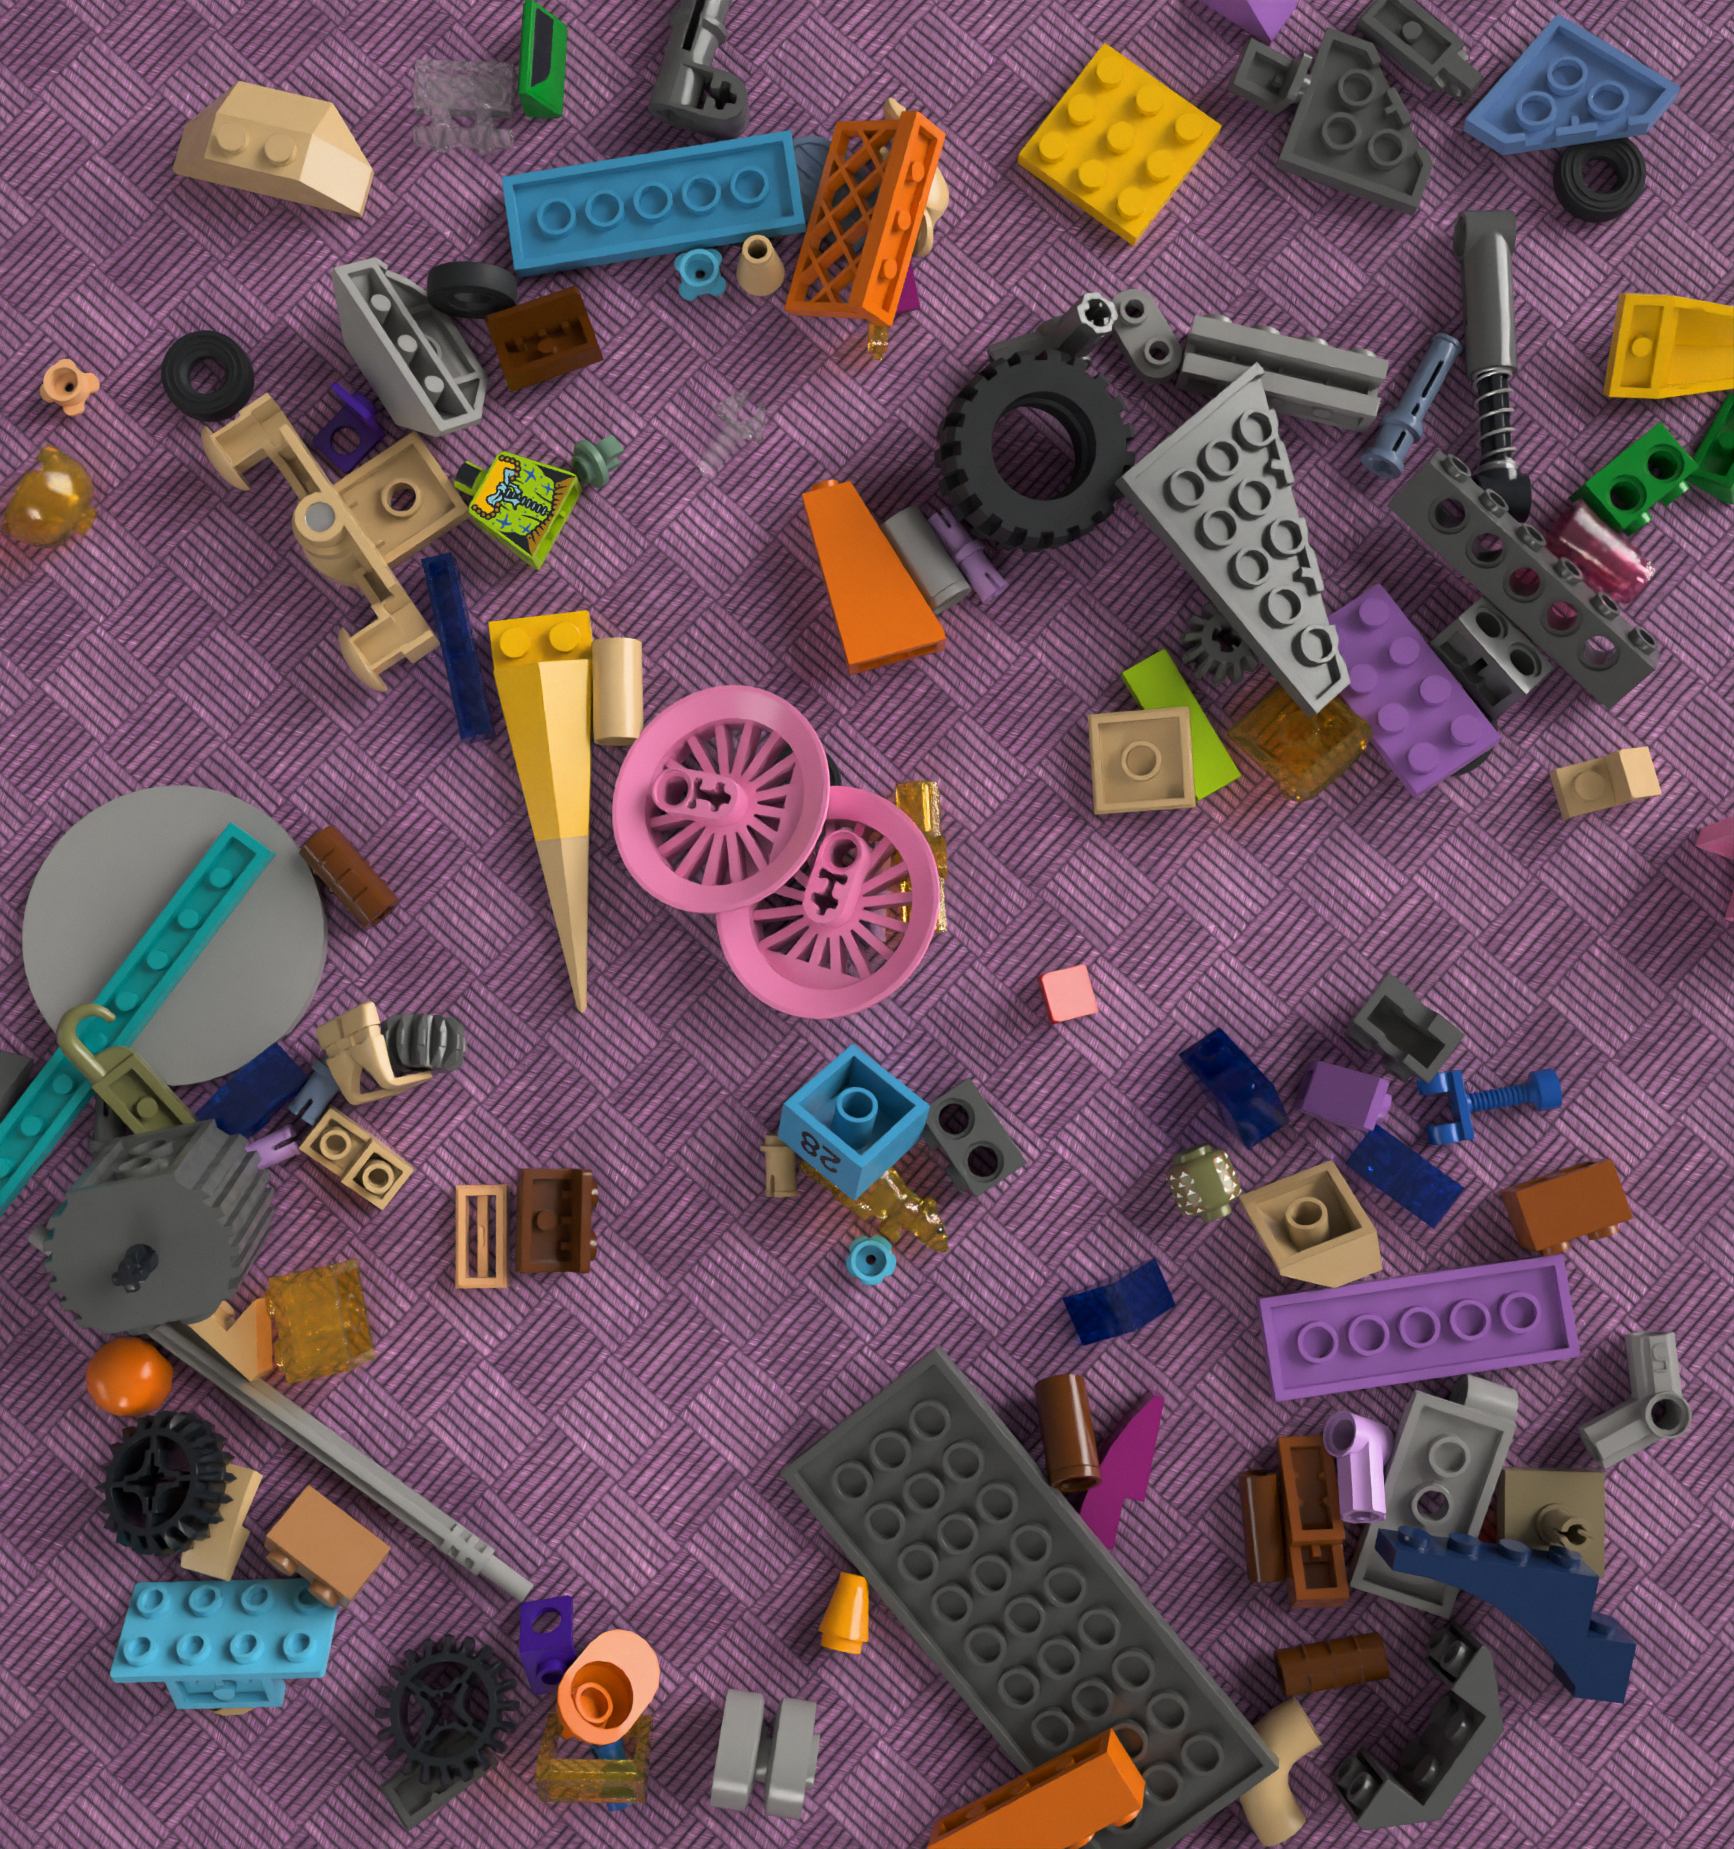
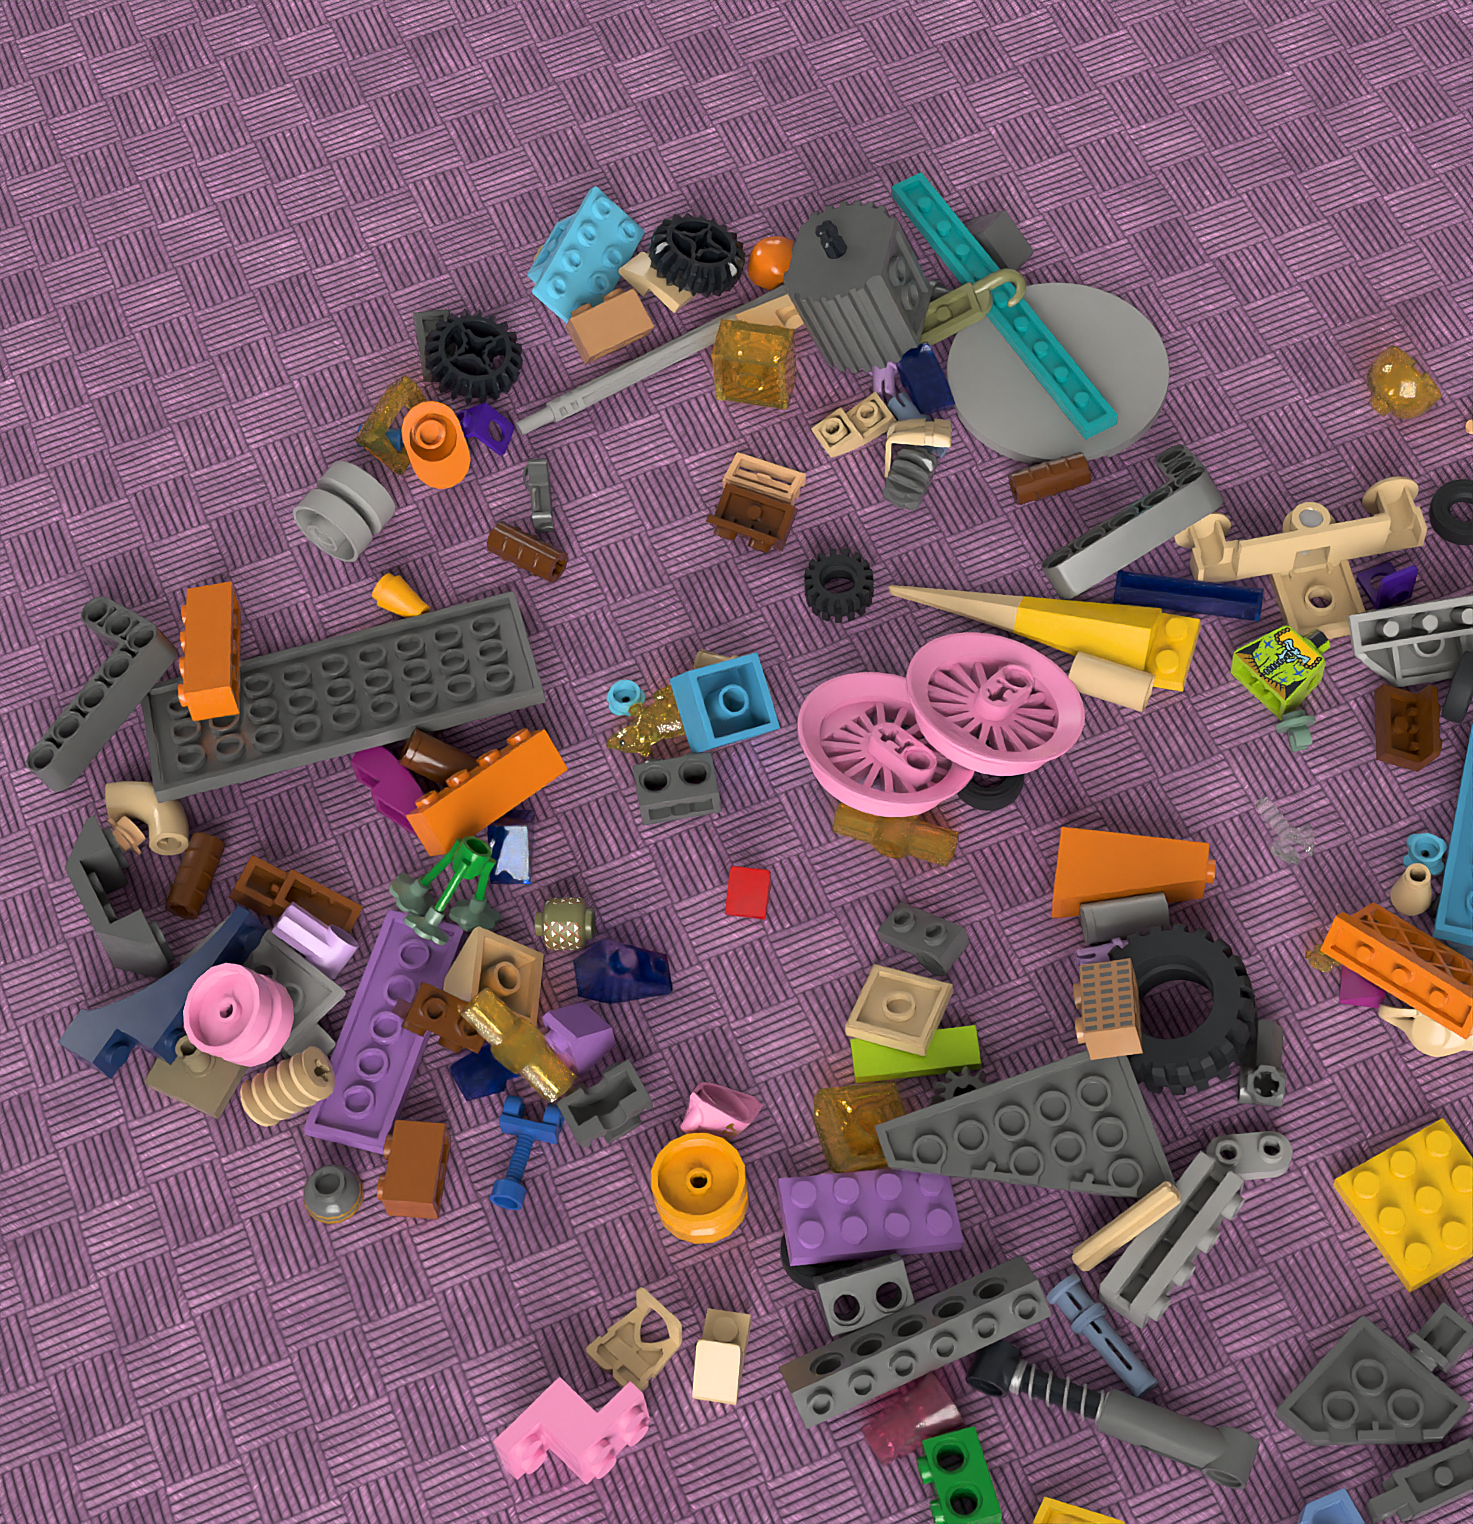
camera: 120 degrees right, 25 degrees down
(394, 720) = (1139, 527): none -> beam
(577, 1062) = (839, 603): none -> black tyre
(620, 1512) = (540, 492): none -> dark grey piece
(713, 1486) = (527, 551): none -> reddish brown axle
(1040, 772) = (928, 937): none -> dark grey plate
(1089, 1354) = (487, 791): none -> orange brick
(1101, 493) = (1109, 1009): none -> medium nougat brick
(1233, 1301) = (469, 858): none -> plant
(1262, 1526) = (326, 873): reddish brown piece -> none
(1302, 412) = (1126, 1226): none -> tan axle
(1316, 1782) = (127, 834): none -> light nougat plate
(1357, 895) = (719, 1111): none -> bright pink hat
(1400, 1154) = (518, 1045): none -> clear yellow piece
(1407, 1256) = (440, 1014): none -> reddish brown bracket
(1485, 872) = (700, 1188): none -> light orange wheel
(1522, 1493) = (238, 1015): none -> bright pink wheel
(1554, 1395) = (288, 1087): none -> tan piece
(1621, 1289) = (333, 1194): none -> dark grey piece
(1629, 1425) = (258, 1174): light grey piece -> none
(1654, 876) = (622, 1348): none -> tan piece

